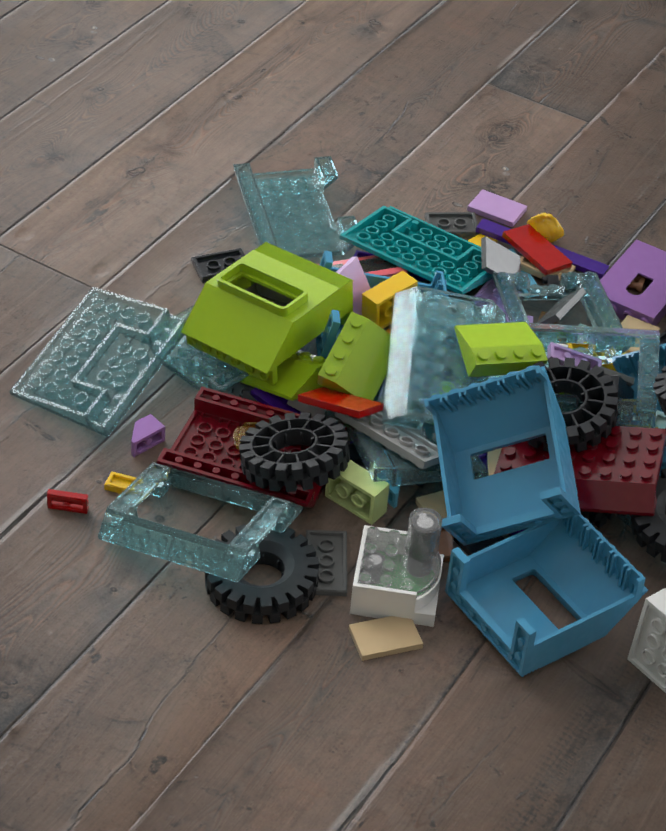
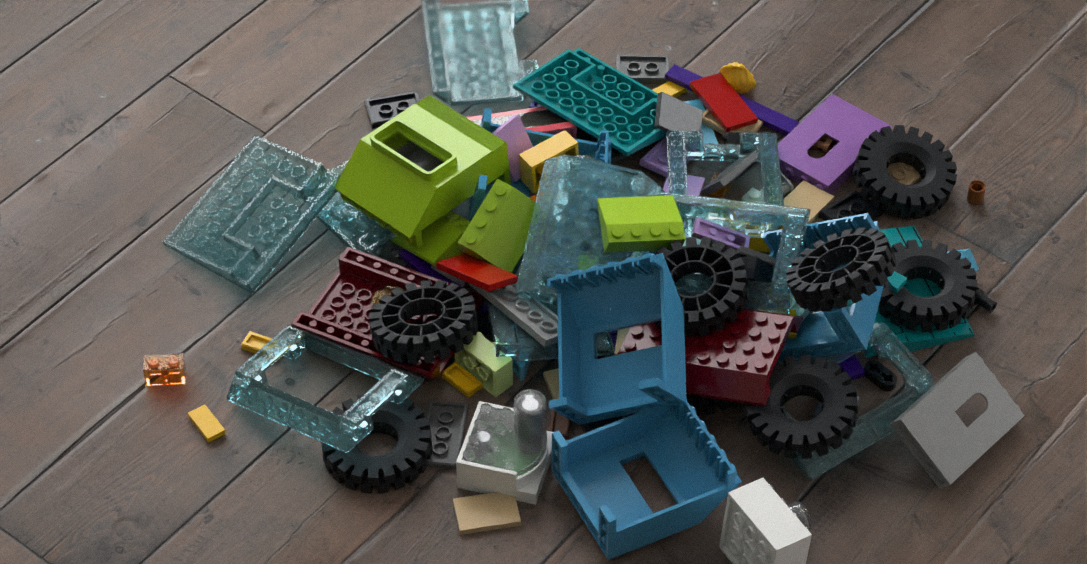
camera: 10 degrees right, 5 degrees up
(29, 511) = (164, 369): none -> clear orange brick
(67, 501) = (203, 360): red tile -> none
(80, 562) = (206, 423): none -> yellow tile
(146, 434) = (288, 294): medium lavender slope -> none
(335, 509) = (462, 379): none -> yellow tile
(497, 208) = (695, 50): lavender tile -> none

